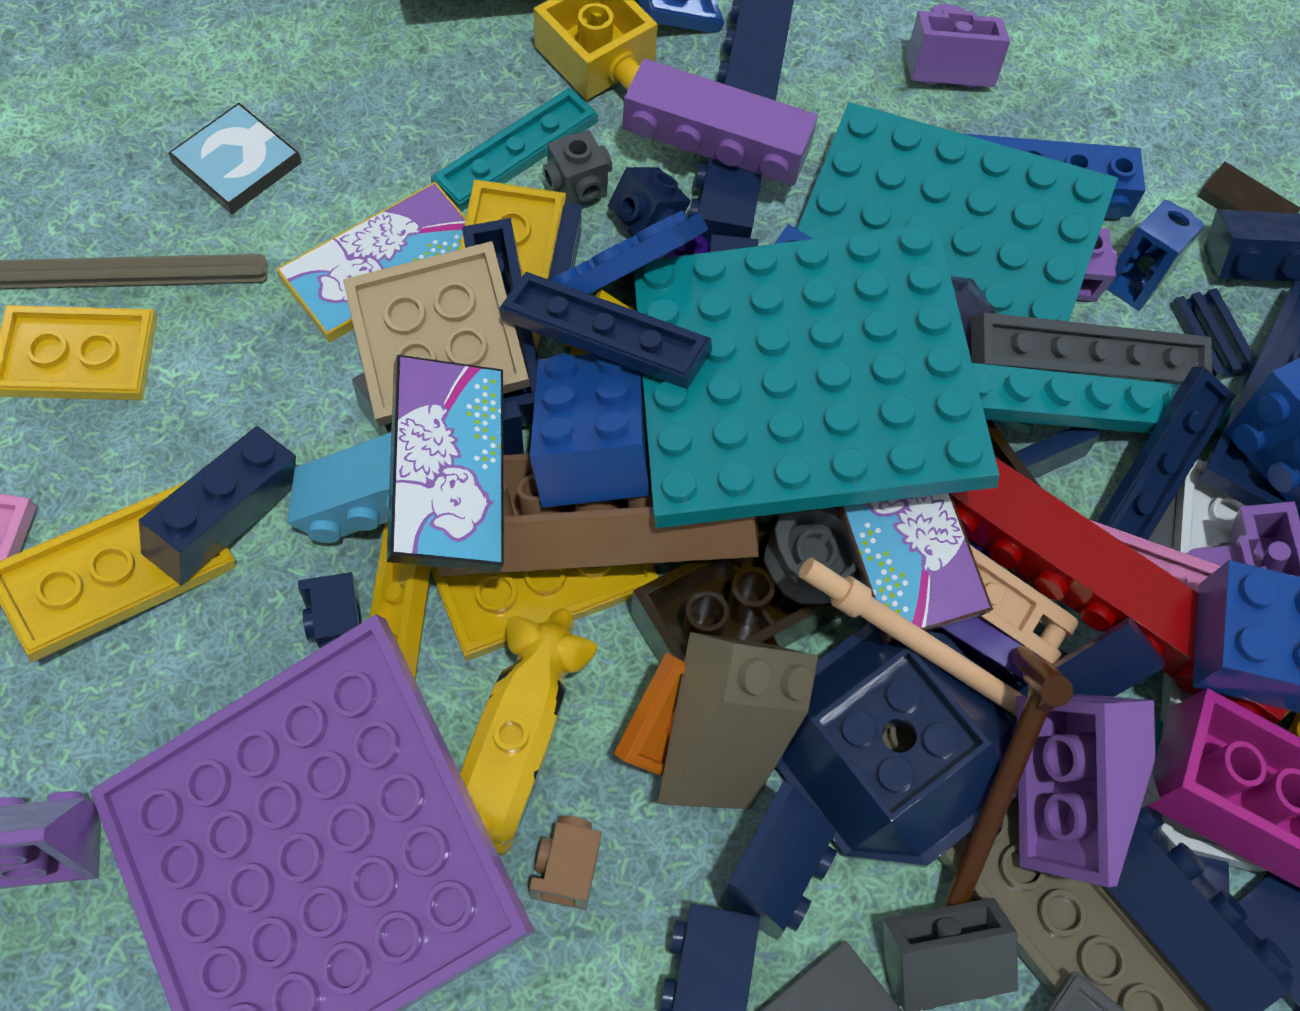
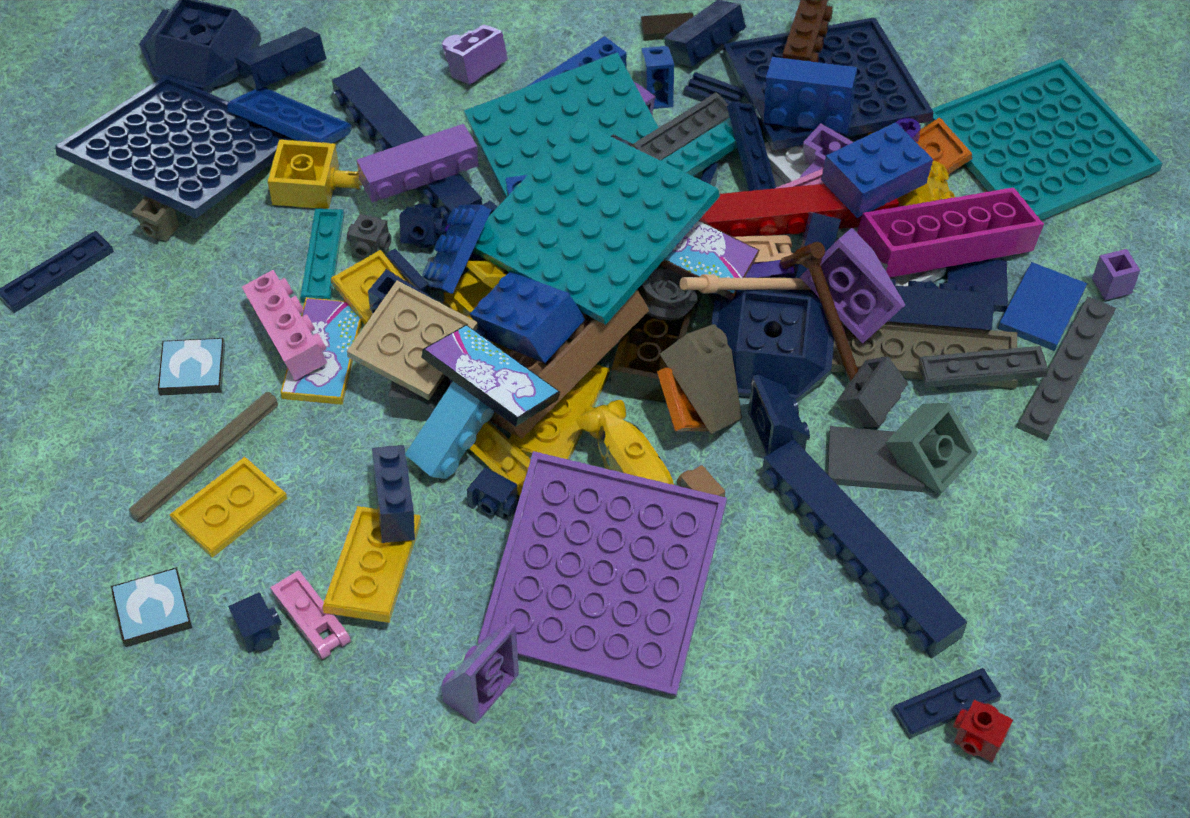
camera: 40 degrees left, 10 degrees down
(361, 193) = (285, 325): none -> bright pink brick
(606, 329) = (493, 270): dark blue tile -> none

